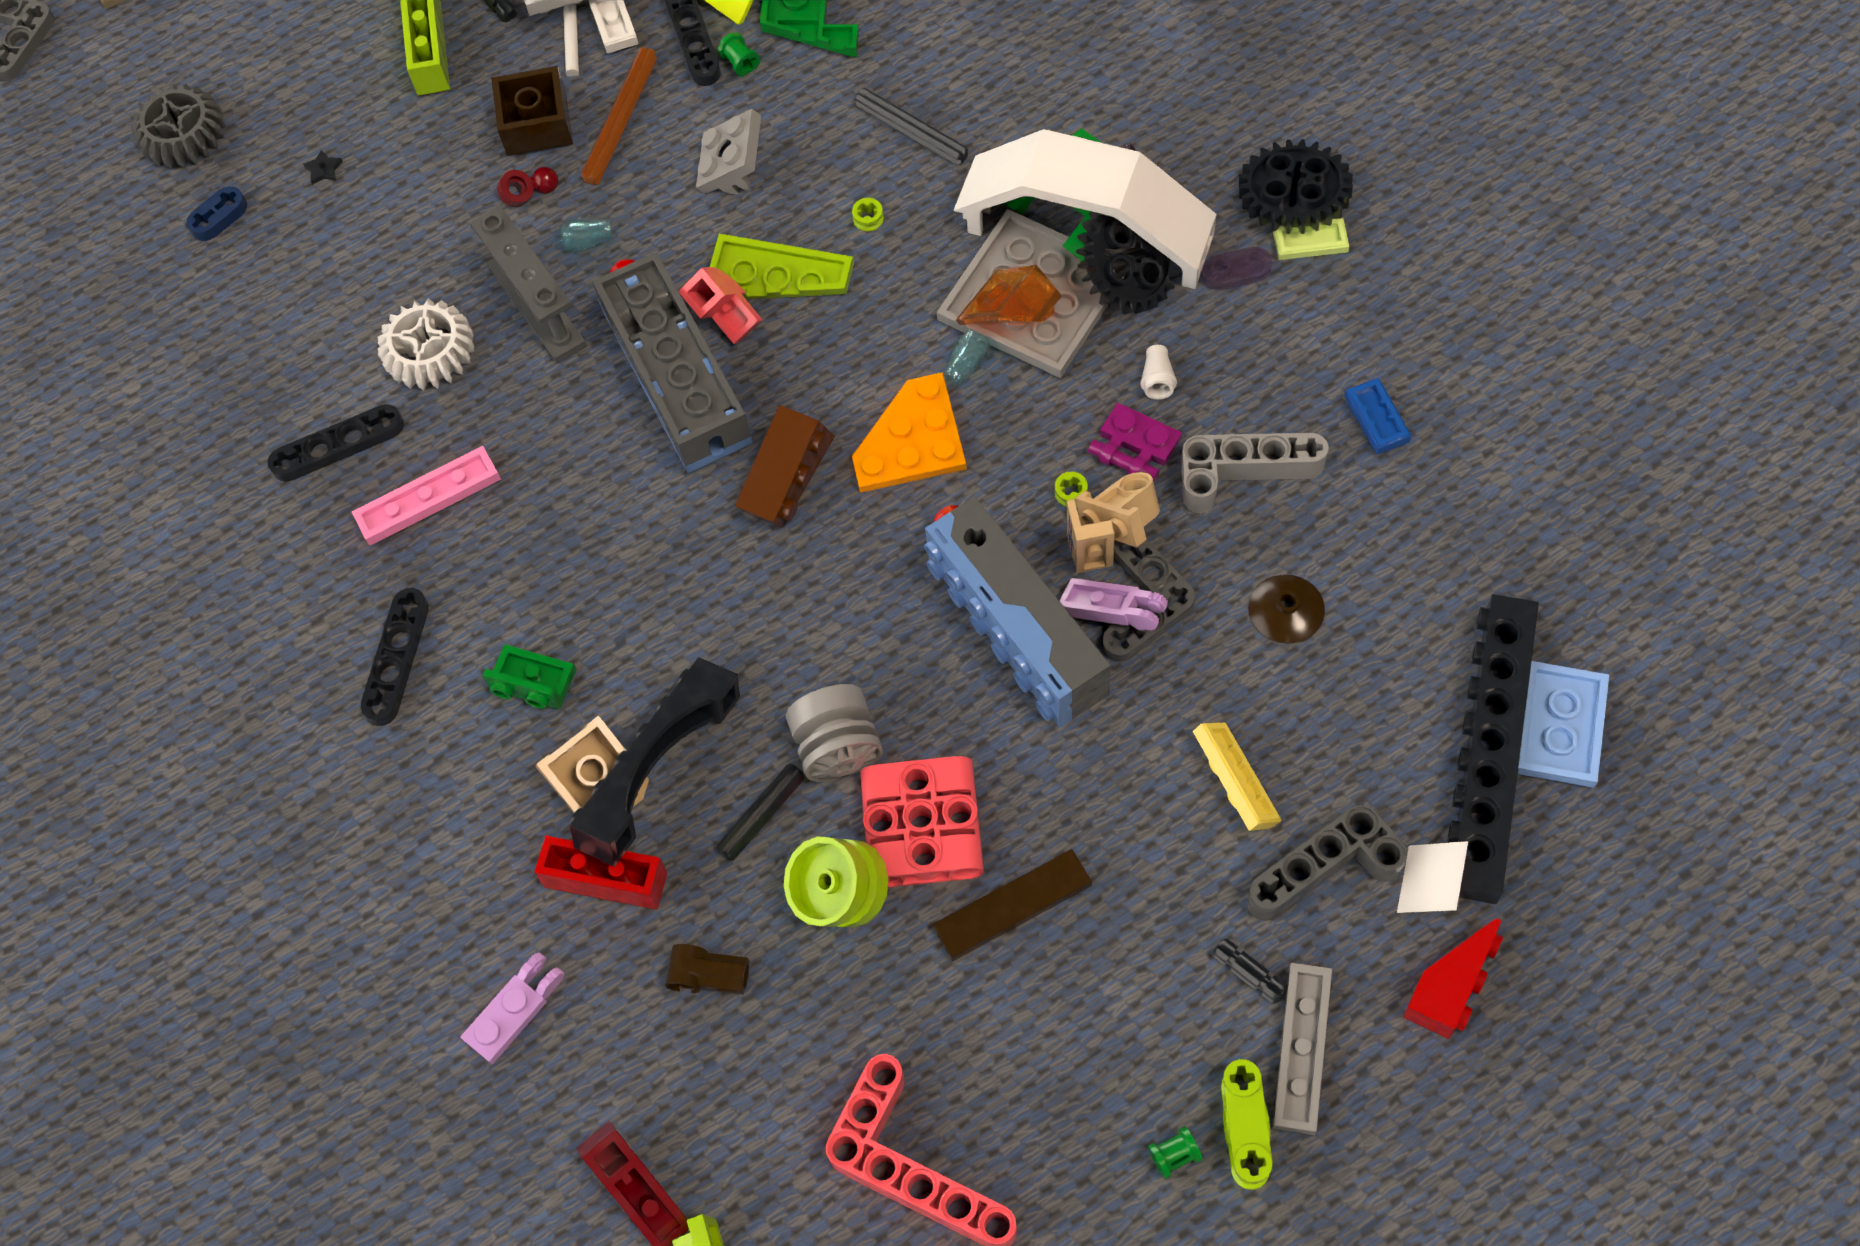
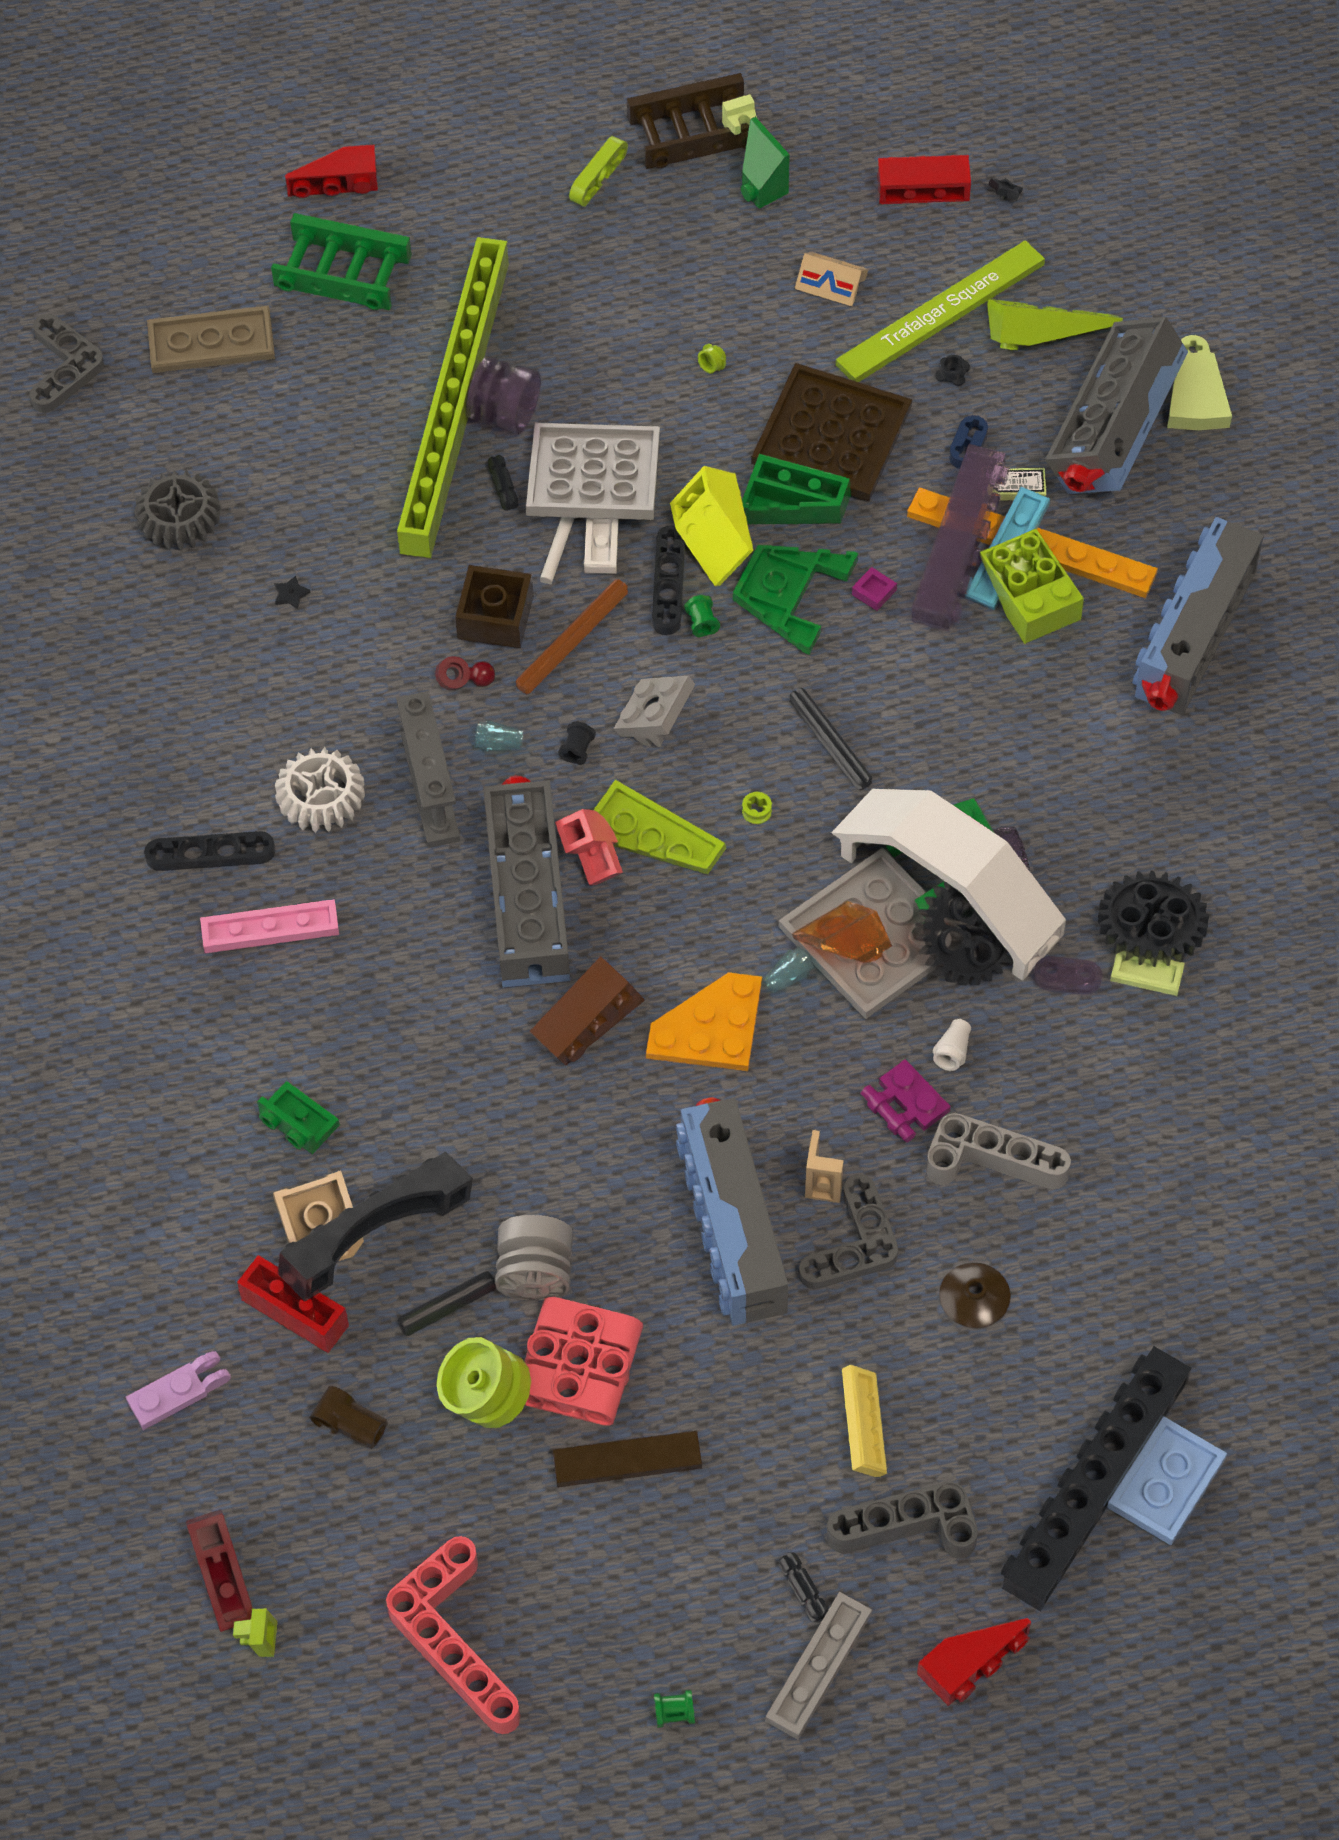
camera: 15 degrees right, 5 degrees down
(216, 213) = (182, 603): dark blue beam -> none
(392, 656) = (187, 1056): black beam -> none
(666, 212) = (577, 743): none -> black bush
(1068, 479) = (830, 1131): lime bush -> none
(1113, 603) = (819, 1234): lavender hinge -> none
(1127, 503) = (865, 1154): tan pin -> none
(1246, 1124) = (743, 1707): lime piece -> none
(1377, 416) = (1131, 1154): blue plate -> none
(1432, 877) = (991, 1566): white sticker -> none

